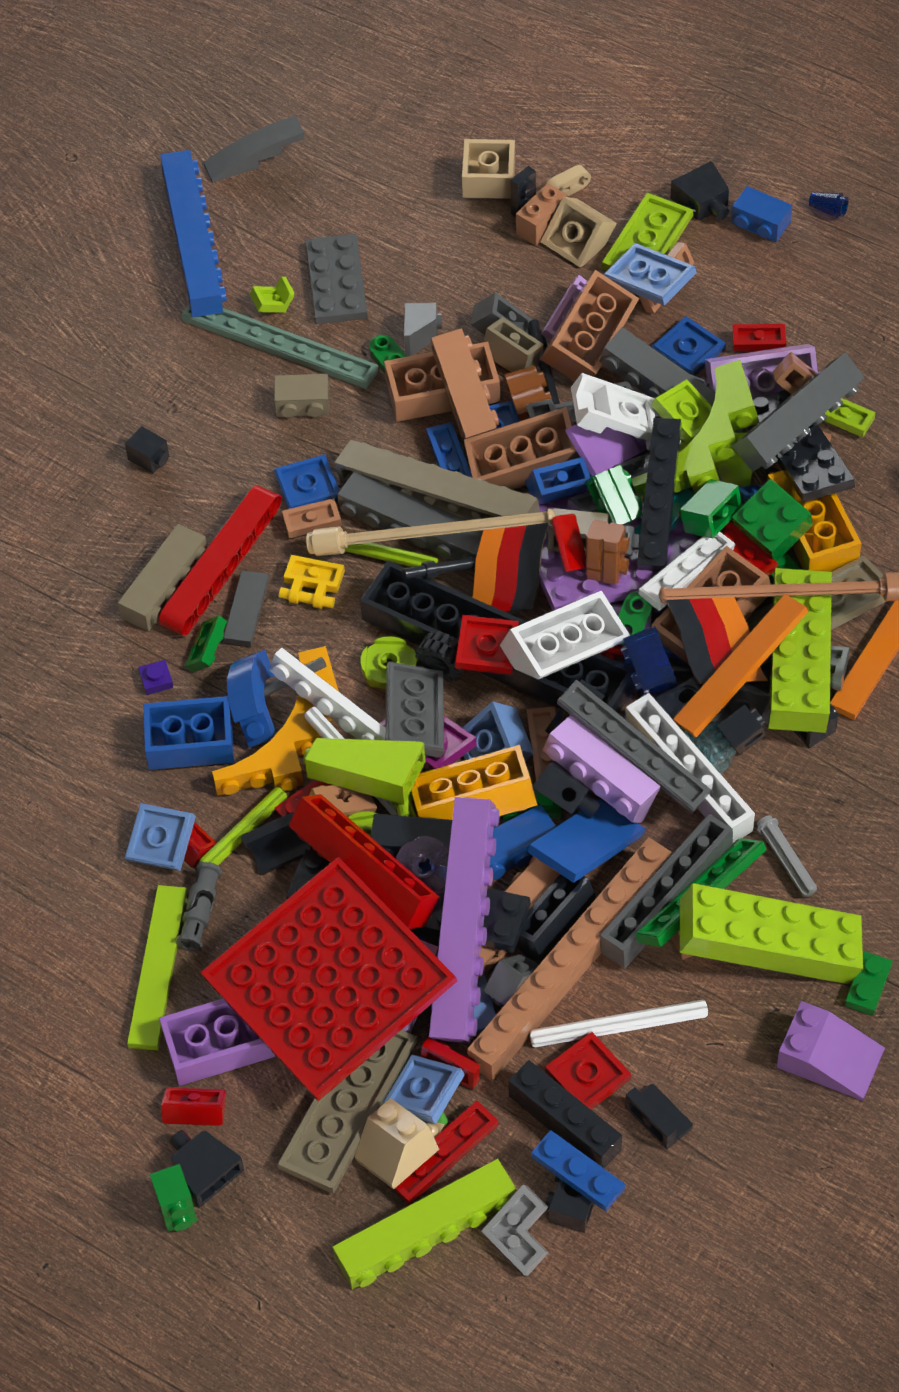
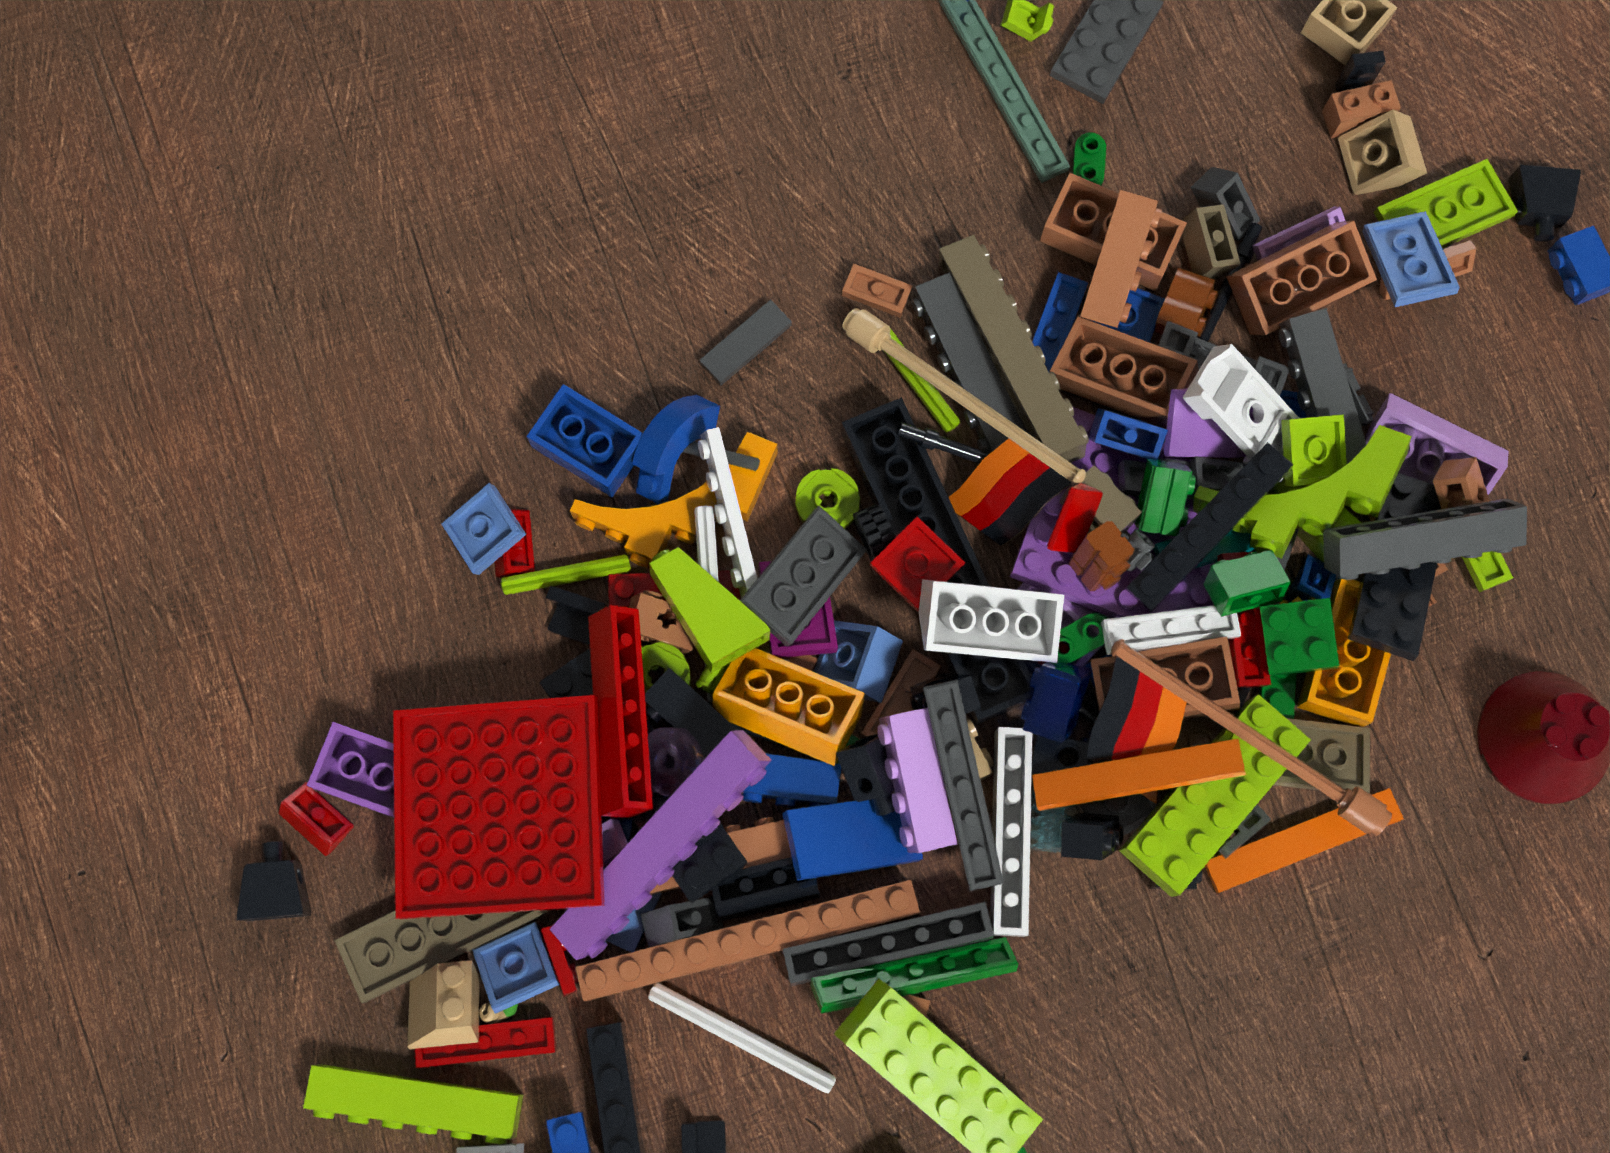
camera: 35 degrees right, 20 degrees up
(147, 450) = (783, 105): black brick -> none
(155, 677) = (610, 354): dark purple plate -> none
(157, 968) = (388, 656): lime tile -> none
(161, 577) = (694, 255): dark tan brick -> none
(173, 1198) = (212, 909): green brick -> none
(199, 906) = (462, 628): dark grey piece -> none
(205, 644) = (677, 355): green plate -> none
(220, 560) = (759, 274): red beam -> none
(301, 395) = (970, 149): dark tan brick -> none
(307, 482) = (904, 248): blue tile -> none
(311, 574) = (831, 352): yellow plate -> none
(420, 326) = (1140, 153): slope -> none
(571, 180) = (1420, 90): tan beam -> none
(589, 1071) = (673, 1067): red plate -> none
(689, 346) = (1388, 363): blue tile -> none
(758, 337) = (1466, 405): red plate -> none
(769, 829) = (1032, 990): light grey axle -> none

